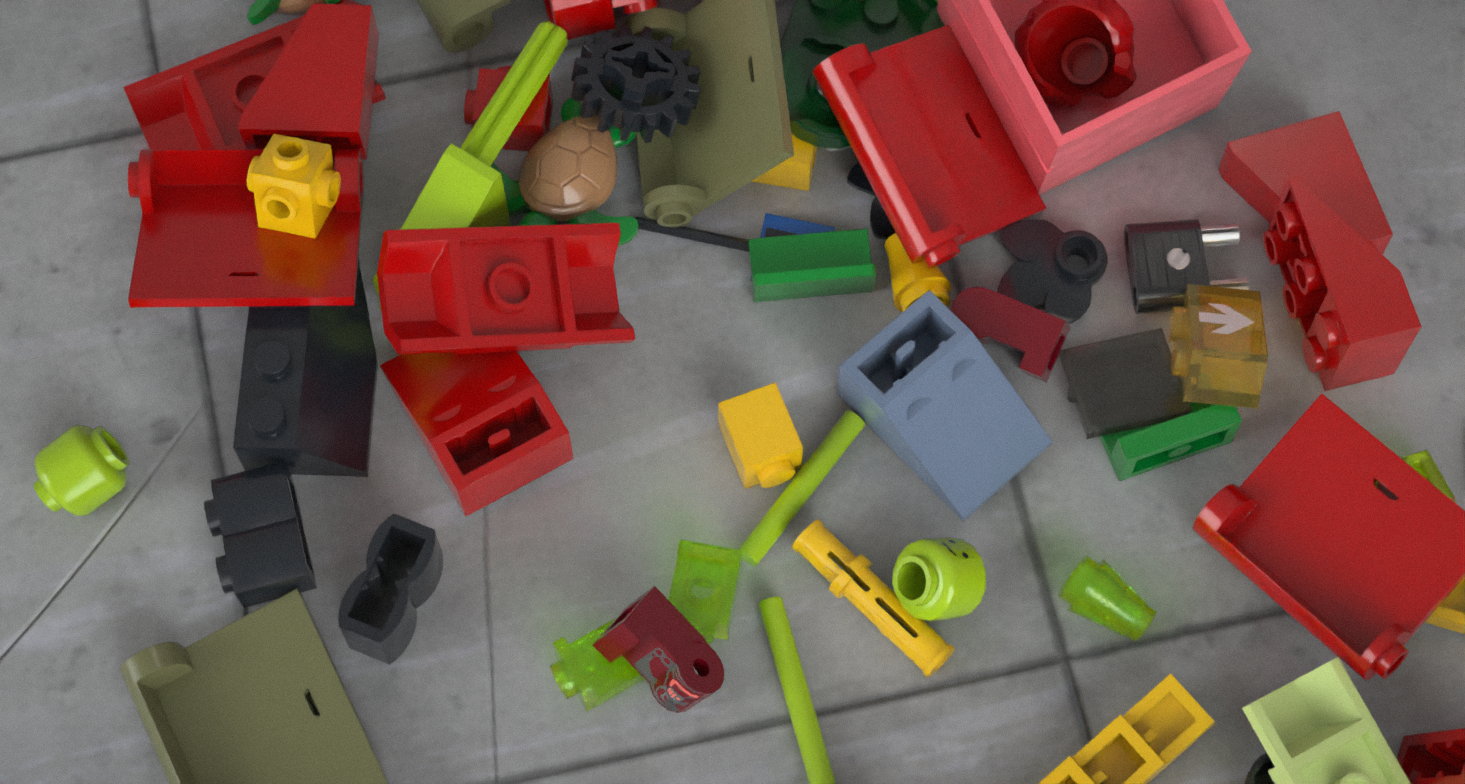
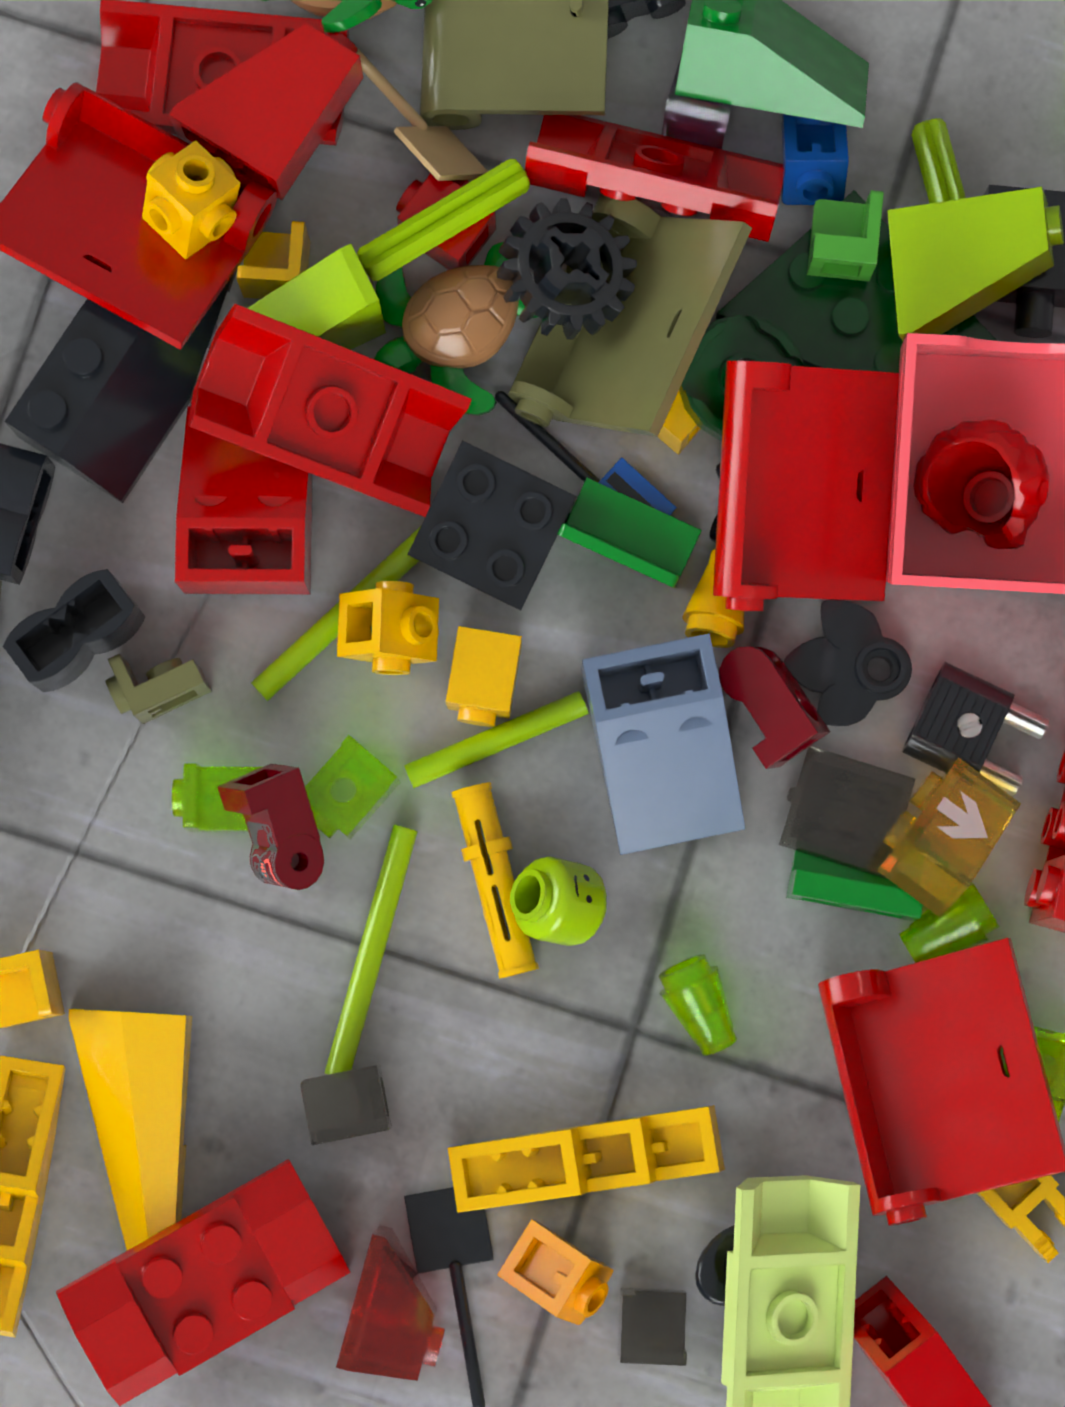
camera: 30 degrees right, 15 degrees up
(386, 209) = (274, 261): none -> yellow panel
(462, 55) = (432, 145): none -> tan piece
(496, 601) = (167, 687): none -> olive bracket
(613, 451) = (326, 628): none -> lime bar
(659, 440) = (401, 624): none -> yellow brick
(694, 316) = (491, 525): none -> black hinge
(1264, 427) = (959, 928): none -> clear neon green cone

